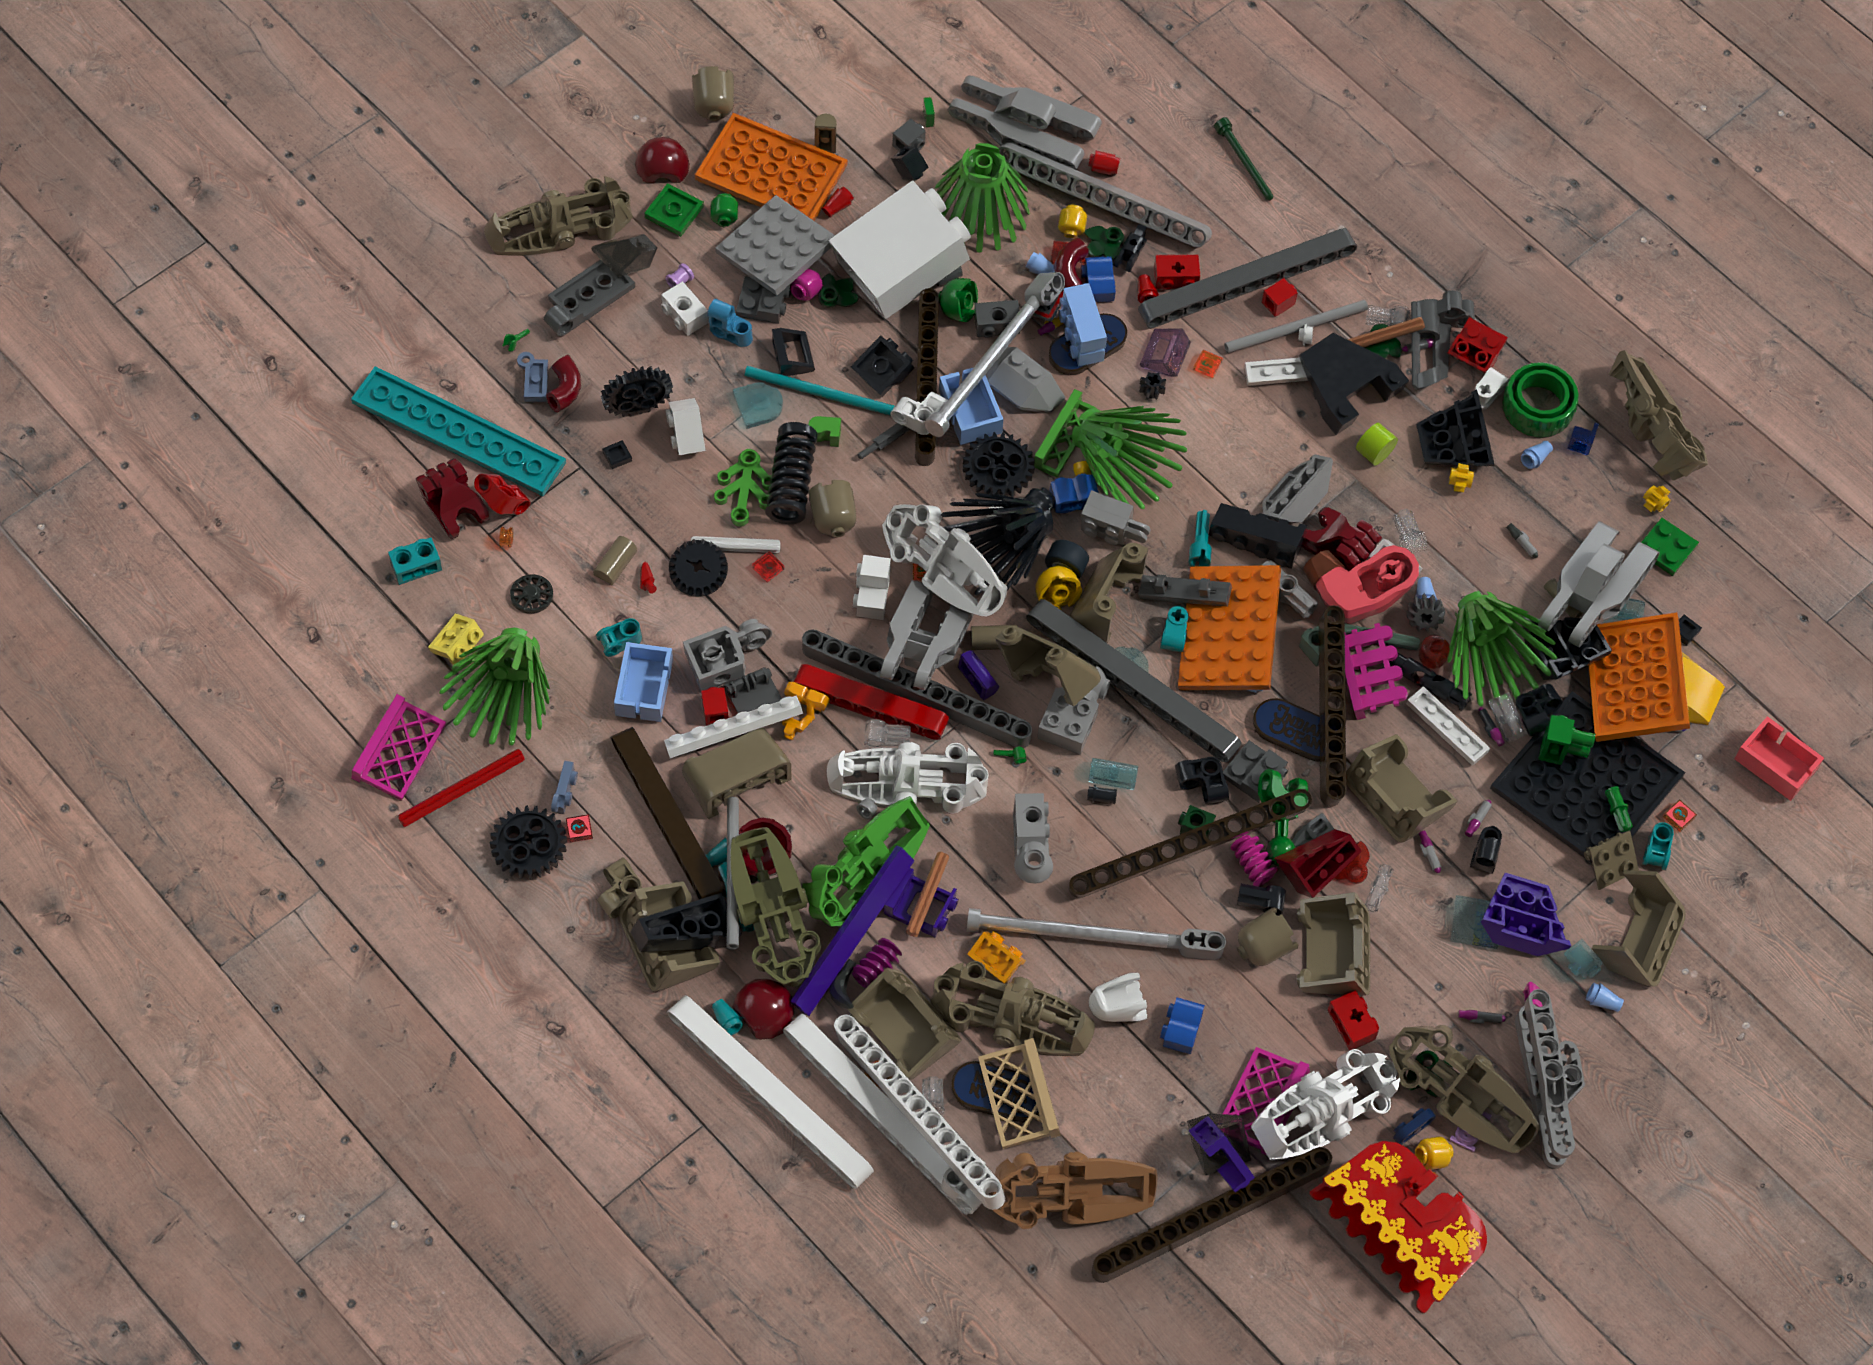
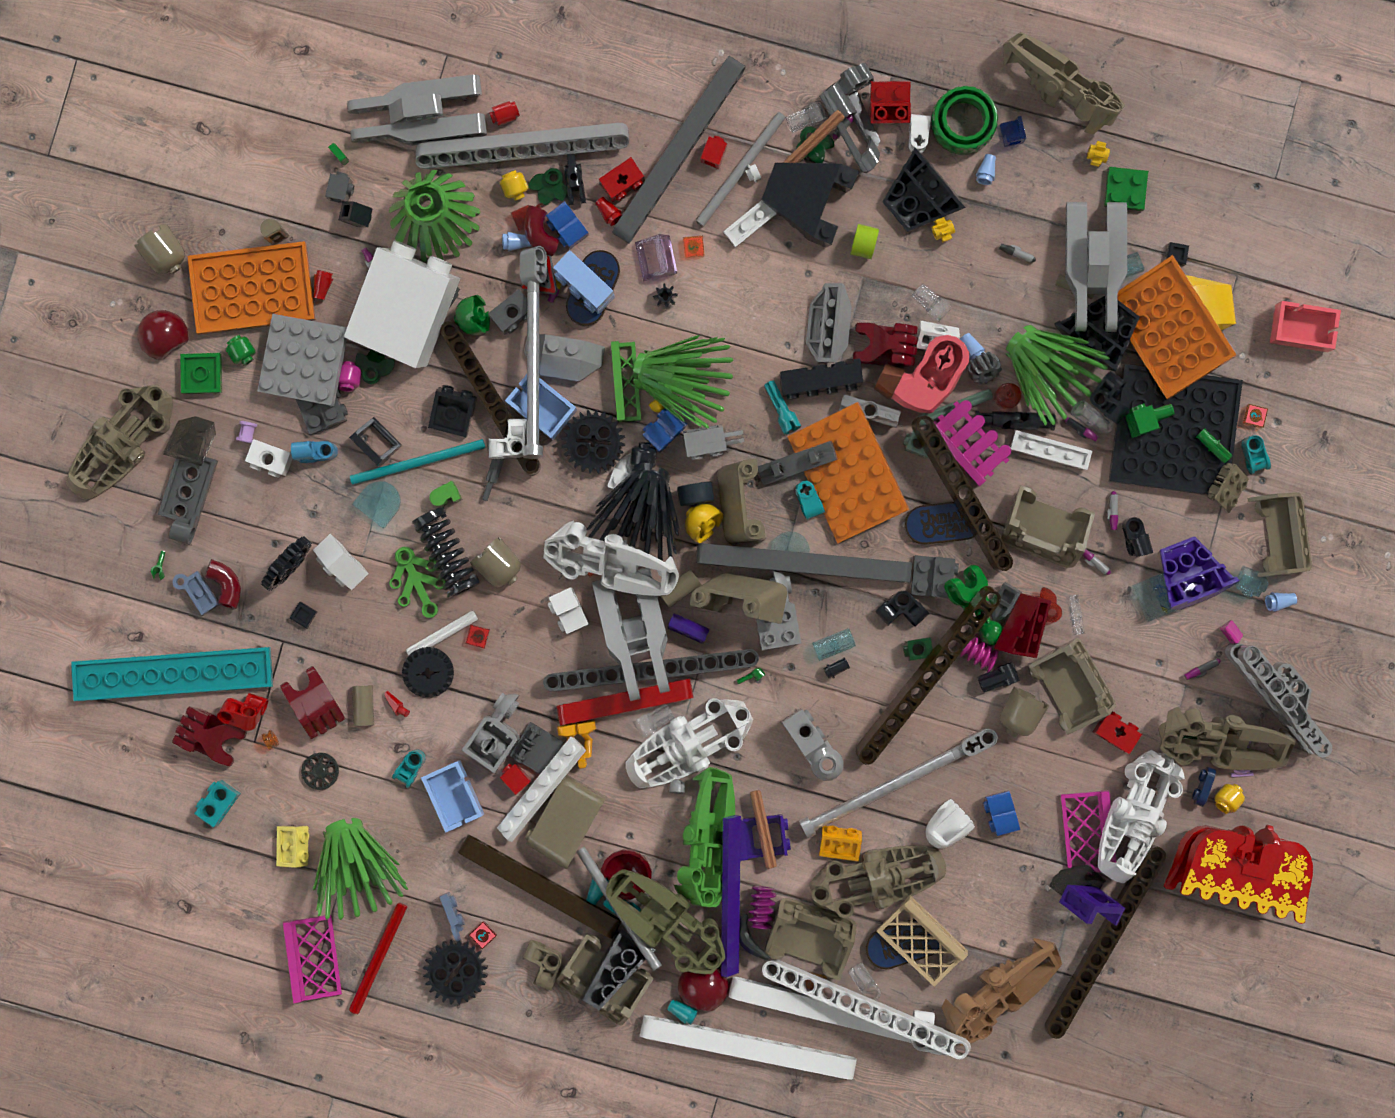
camera: 25 degrees left, 25 degrees up
(571, 527) = (314, 705): none -> dark red piece
(1224, 128) = (577, 17): dark green piece -> none

